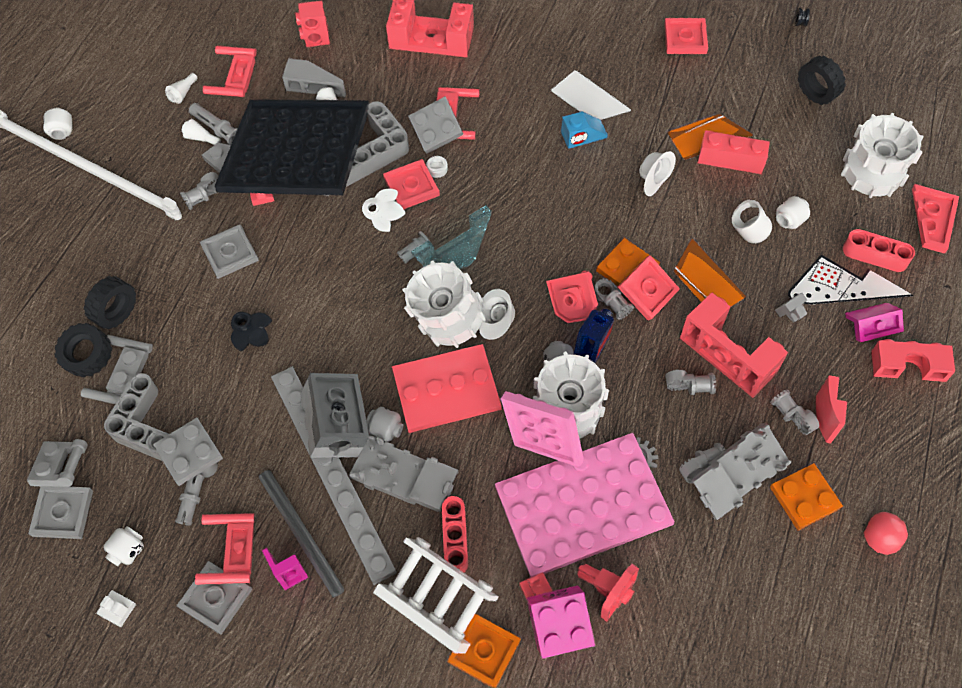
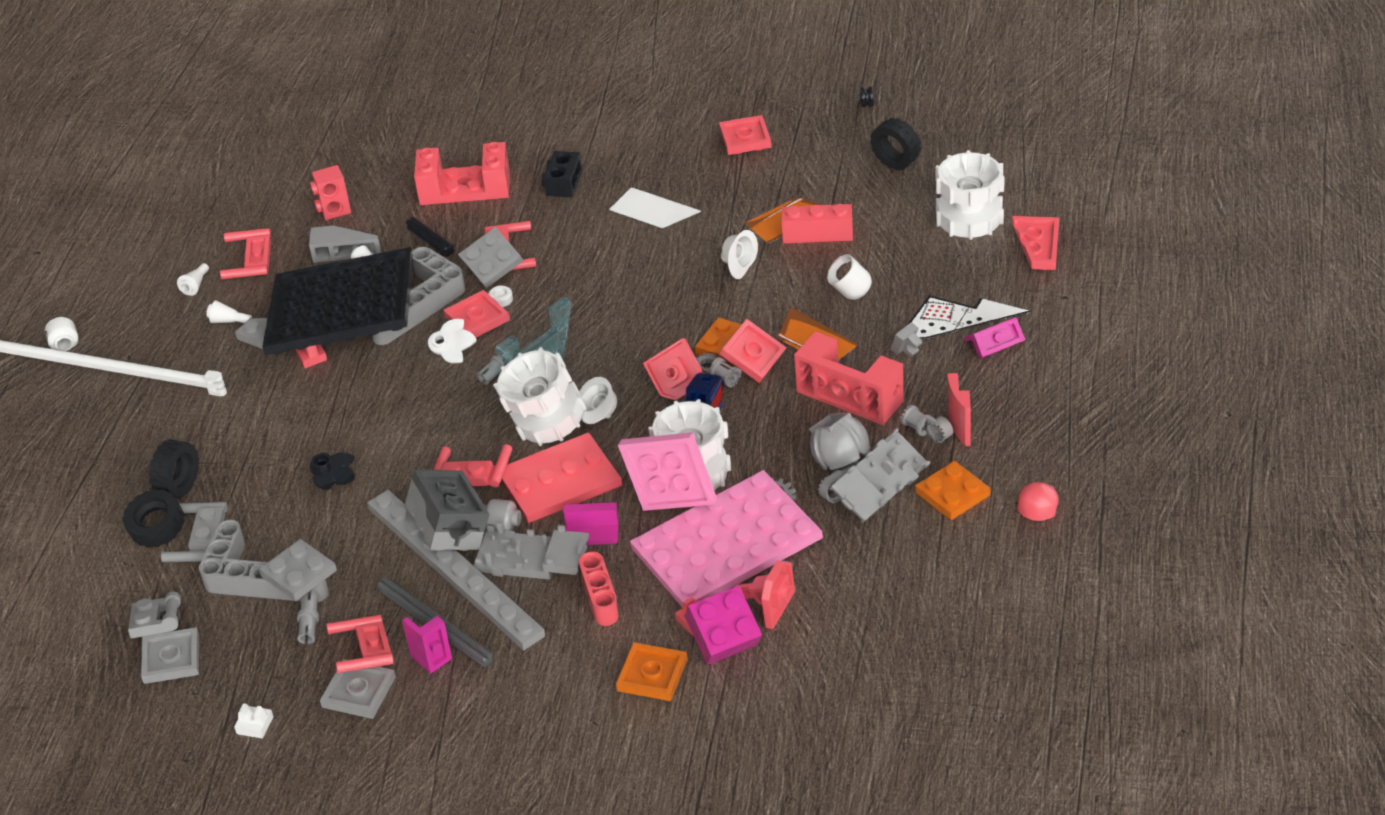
camera: 10 degrees left, 20 degrees down
(123, 546) = (248, 668): white head -> none
(202, 190) = (244, 363): light grey connector -> none
(221, 128) = (258, 305): light grey pin -> none
(229, 251) = (289, 410): light grey tile -> none
(367, 366) = (478, 472): none -> coral plate
(390, 86) = (430, 236): none -> black axle
(433, 621) = (592, 653): white fence -> none
(465, 454) = (597, 519): none -> dark pink panel
(517, 44) = (562, 174): none -> black brick
(582, 129) = (650, 234): dark azure slope -> none
(681, 380) = (811, 419): light grey connector -> none
(710, 423) = (838, 440): none -> light grey piece
(792, 212) = (891, 263): white head -> none
(878, 250) = (985, 277): coral beam -> none
(933, 359) = (1055, 354): coral arch -> none

